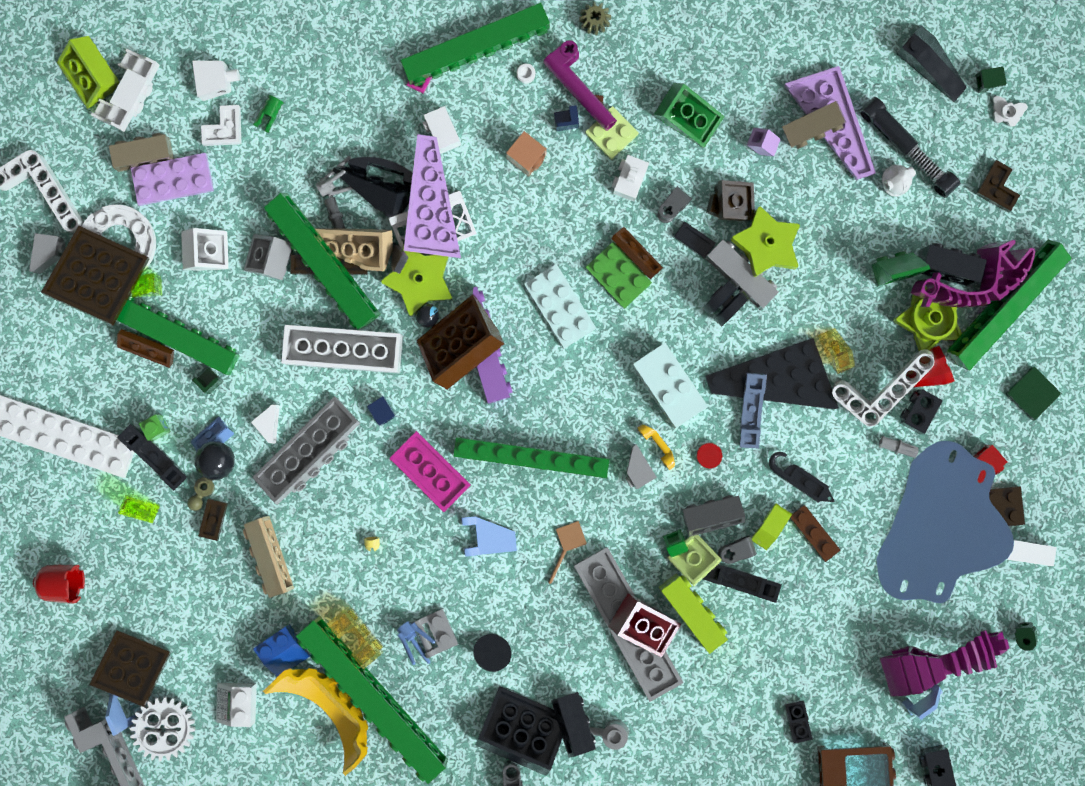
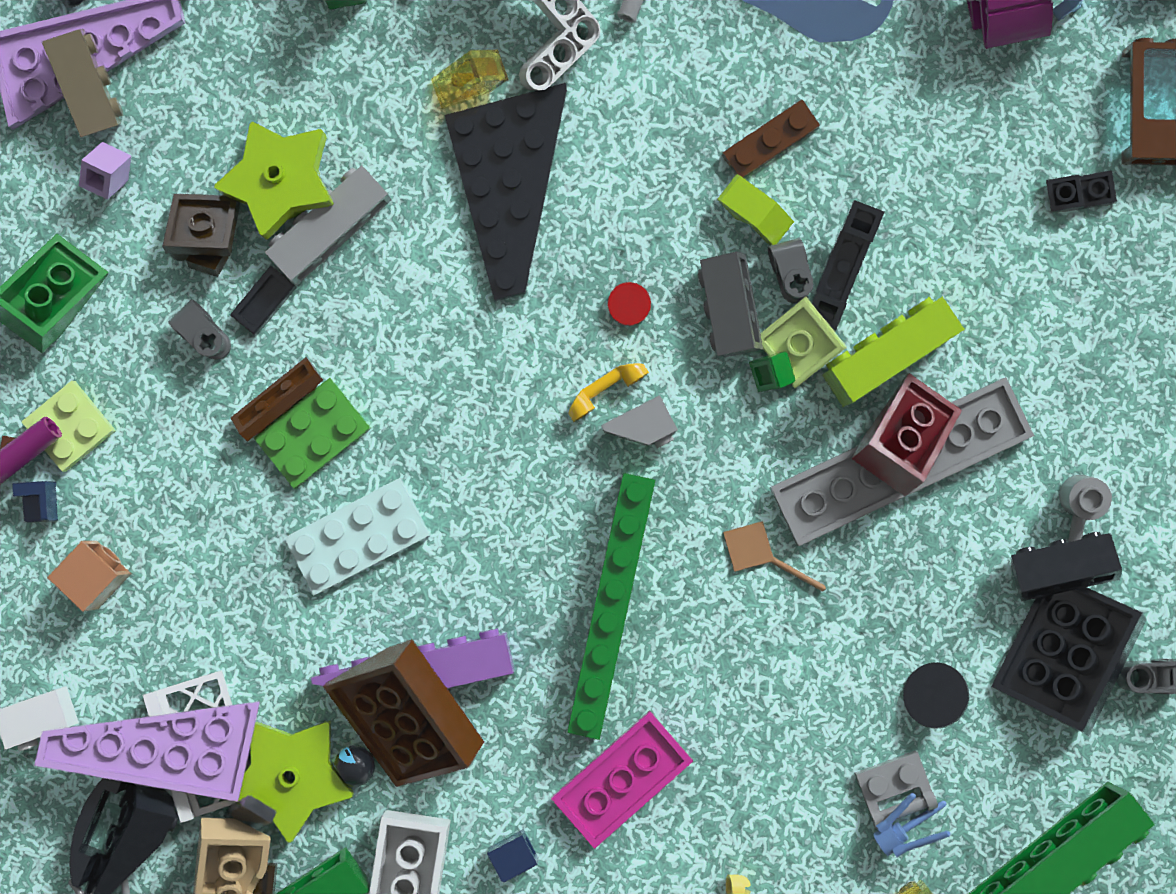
camera: 85 degrees left, 0 degrees up
(490, 537) = (741, 684): light blue flag -> none
(631, 177) = (148, 400): white brick -> none
(669, 385) = (506, 361): light aqua brick -> none
(726, 302) = (372, 254): black wheel -> none
(752, 410) = (558, 226): sand blue slope -> none
(801, 480) = (681, 154): black plate -> none

